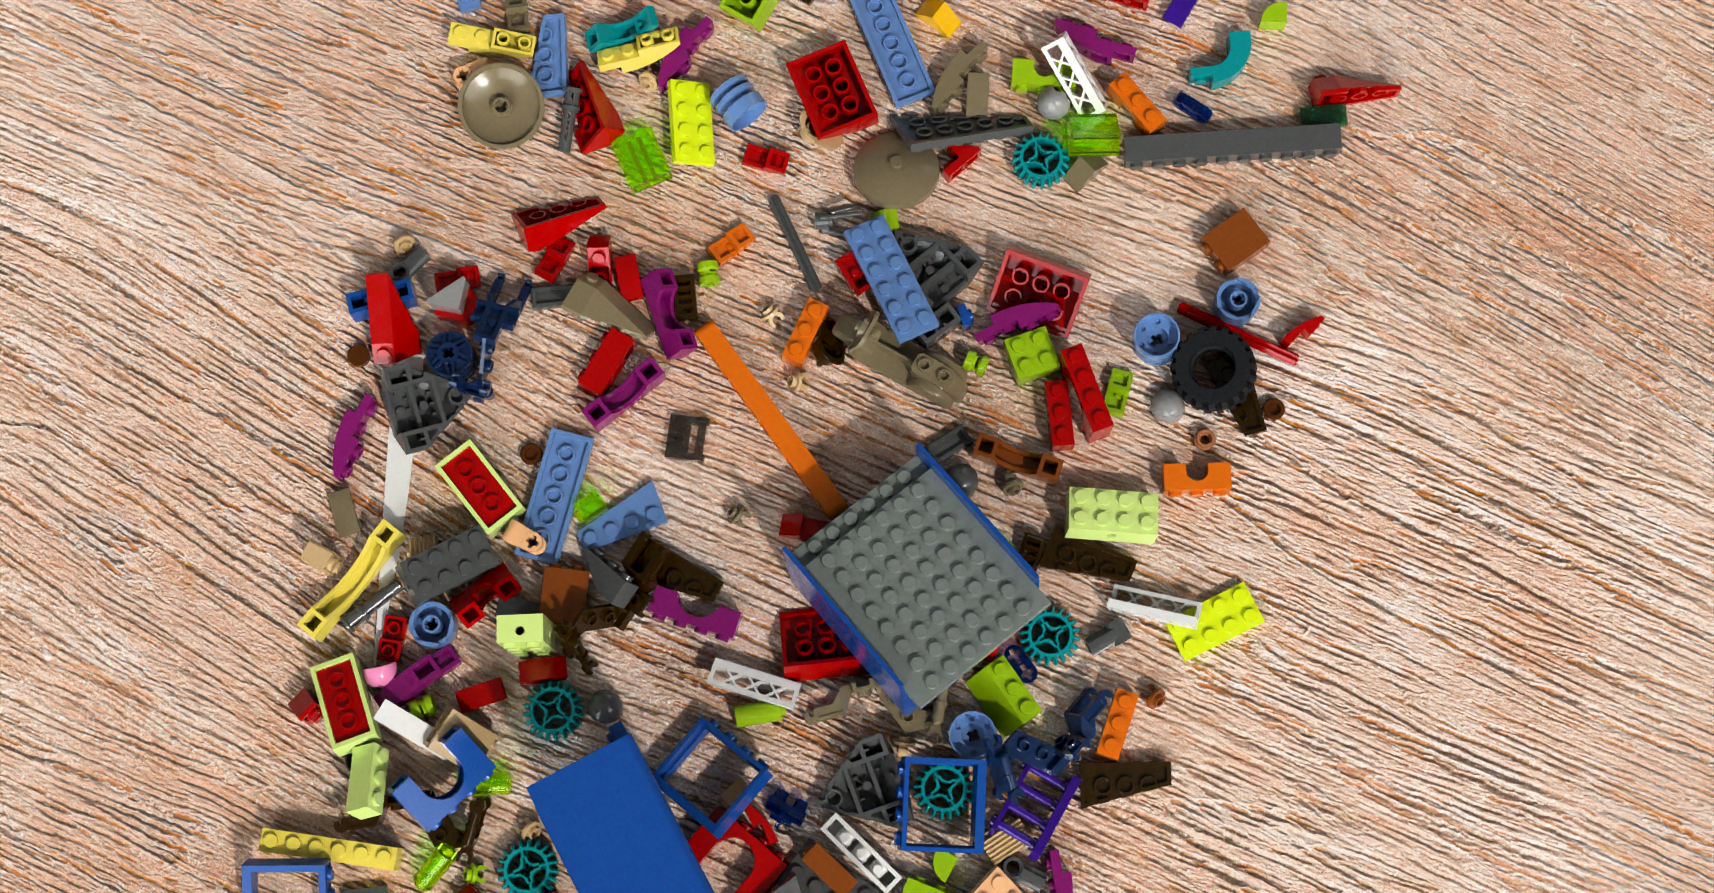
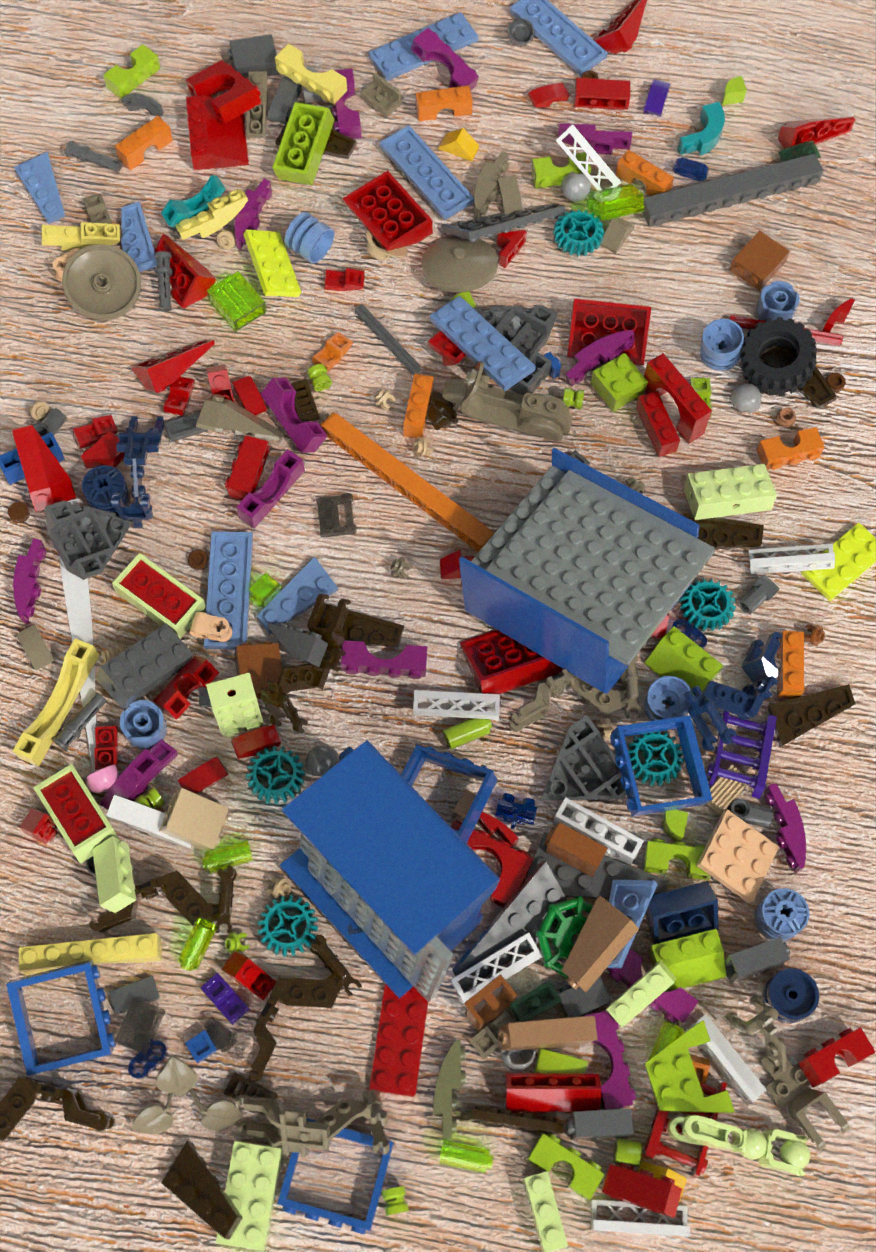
camera: 20 degrees left, 10 degrees down
(322, 558) = (23, 689): tan brick -> none
(451, 298) = (93, 440): light grey slope -> none
(472, 769) = (212, 838): blue arch -> none
(824, 219) = (409, 314): dark grey plant -> none
(1033, 465) = (655, 468): dark orange arch -> none

